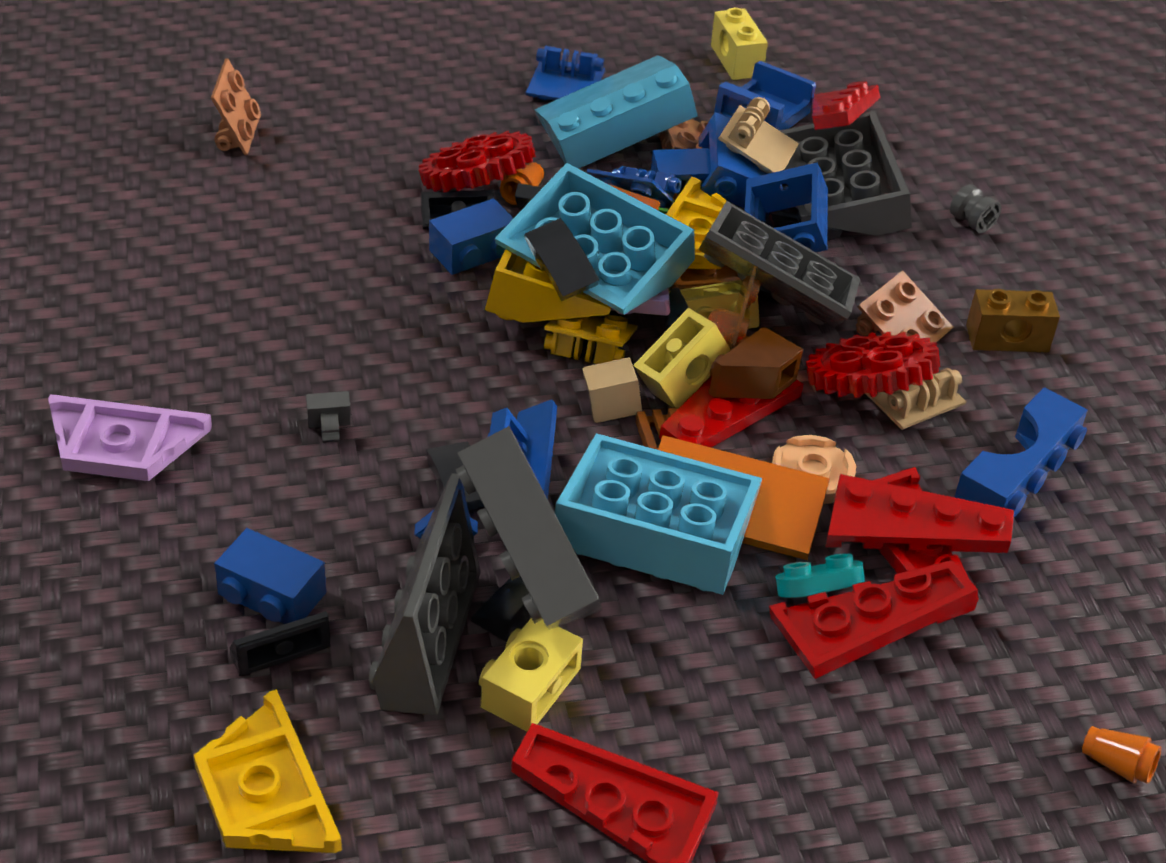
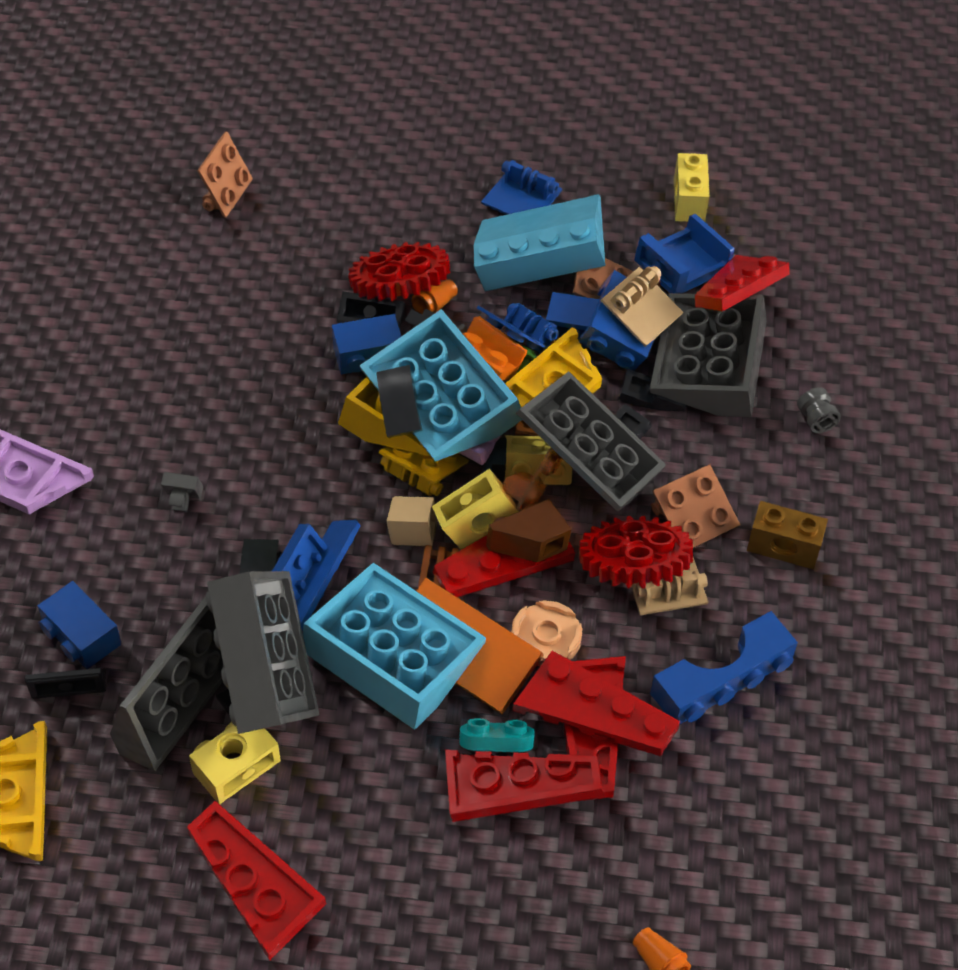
camera: 20 degrees right, 10 degrees up
(804, 186) = (624, 360): blue window -> none

